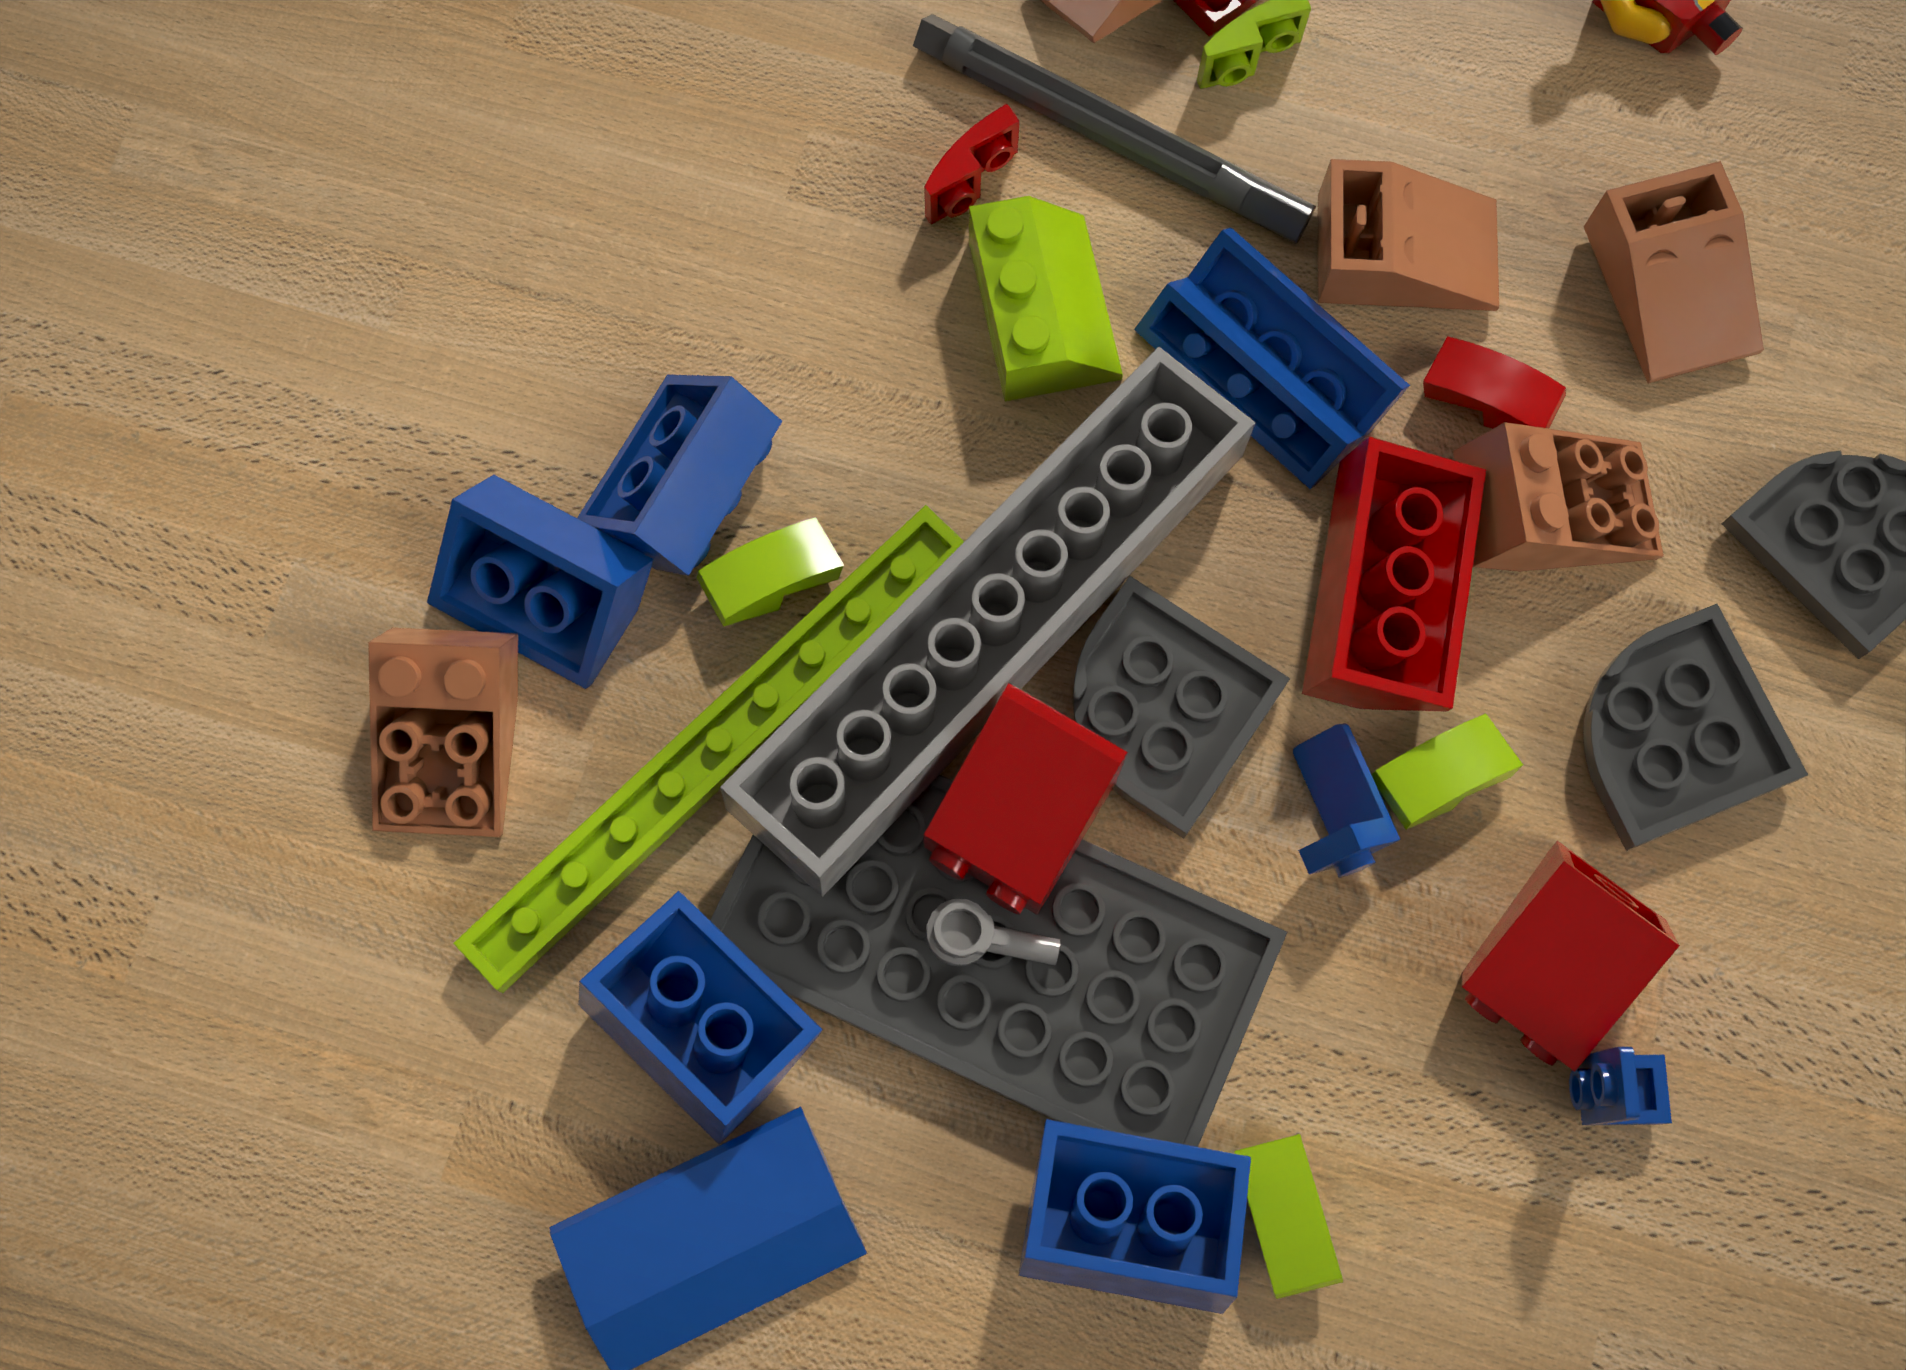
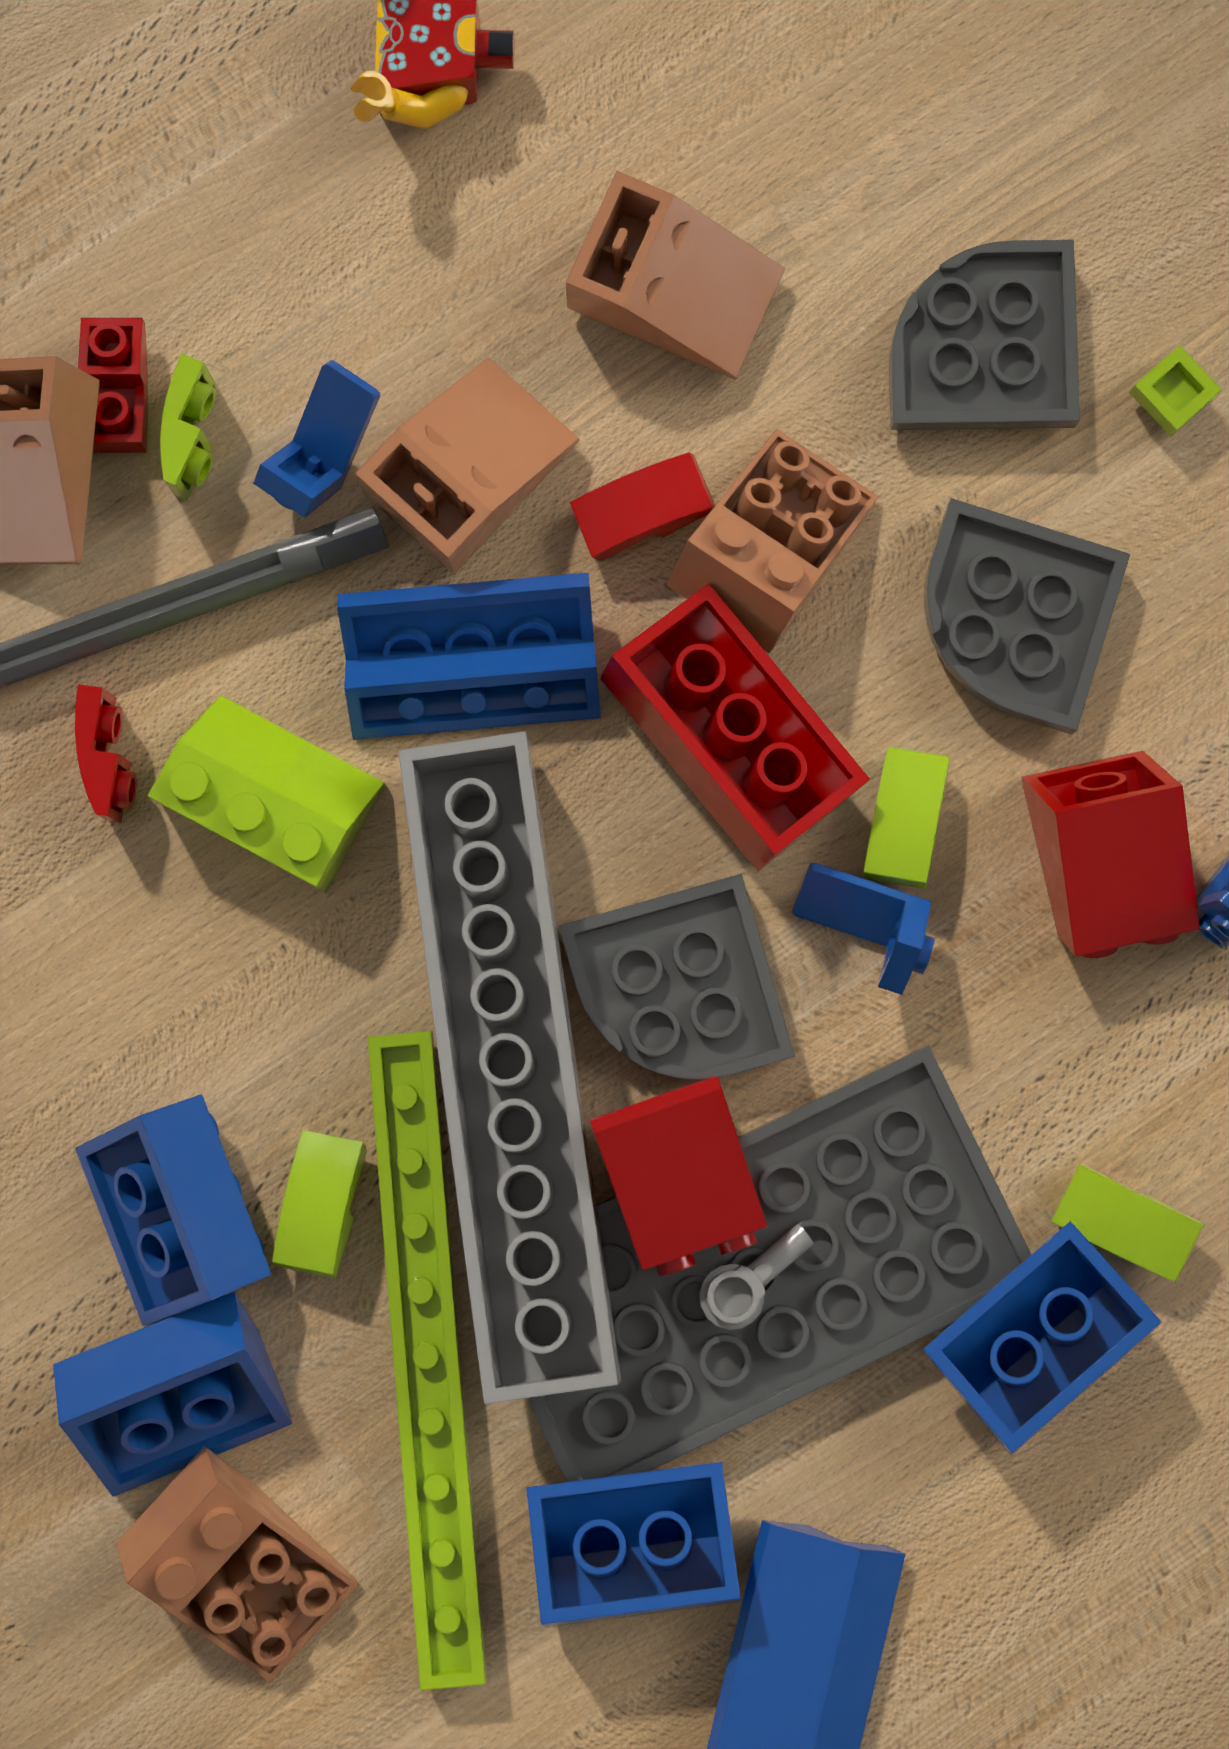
camera: 50 degrees left, 10 degrees up
(1341, 131) = (324, 444): none -> blue bracket

